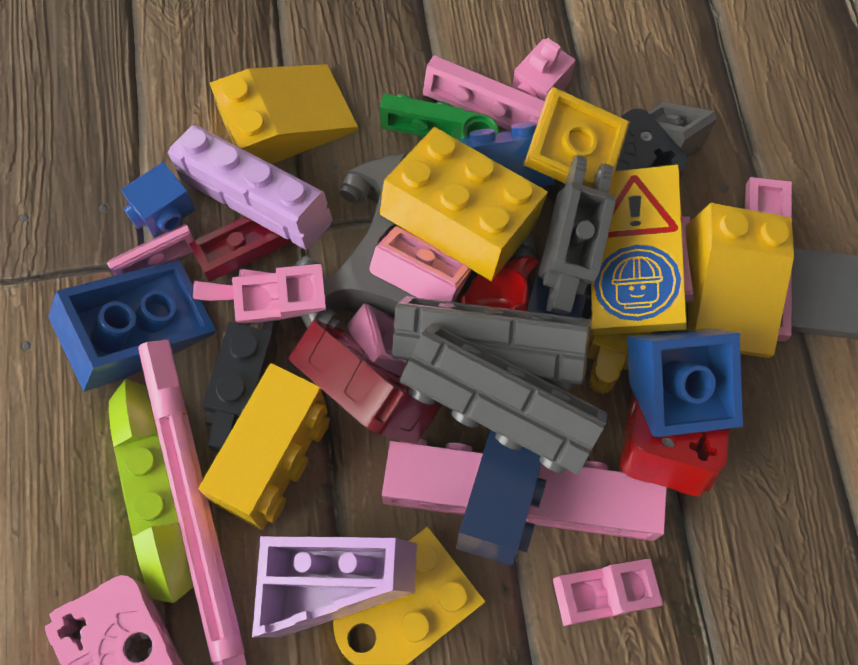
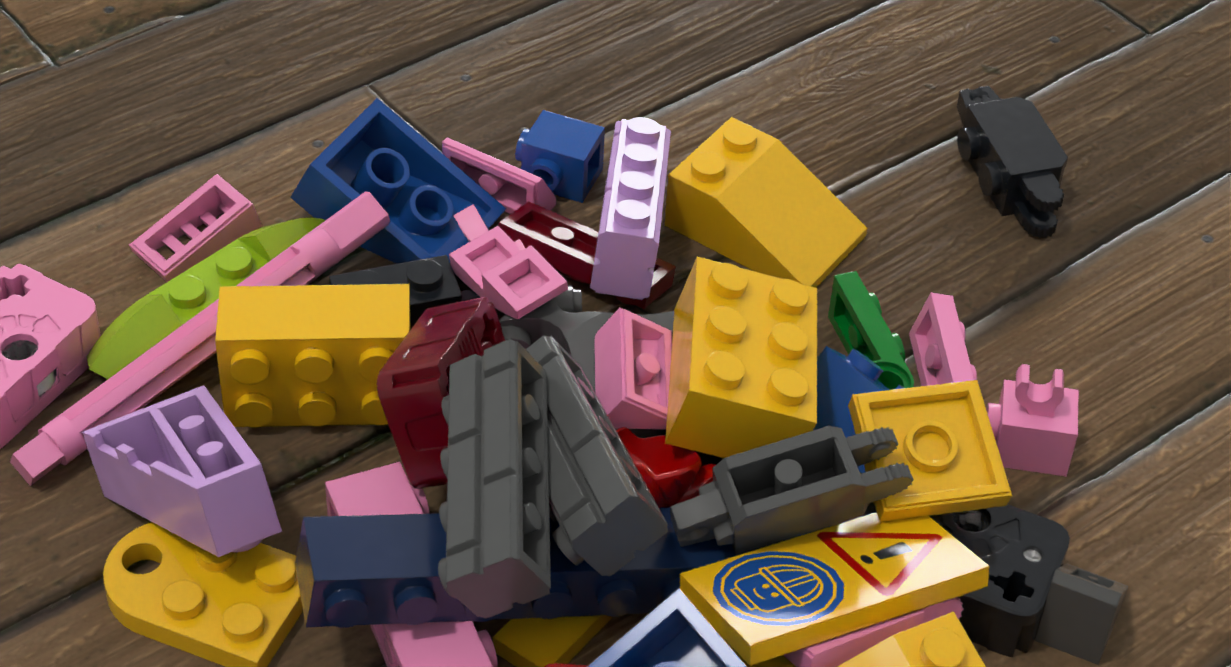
camera: 60 degrees right, 25 degrees down
(50, 457) = (199, 208): none -> bright pink slope

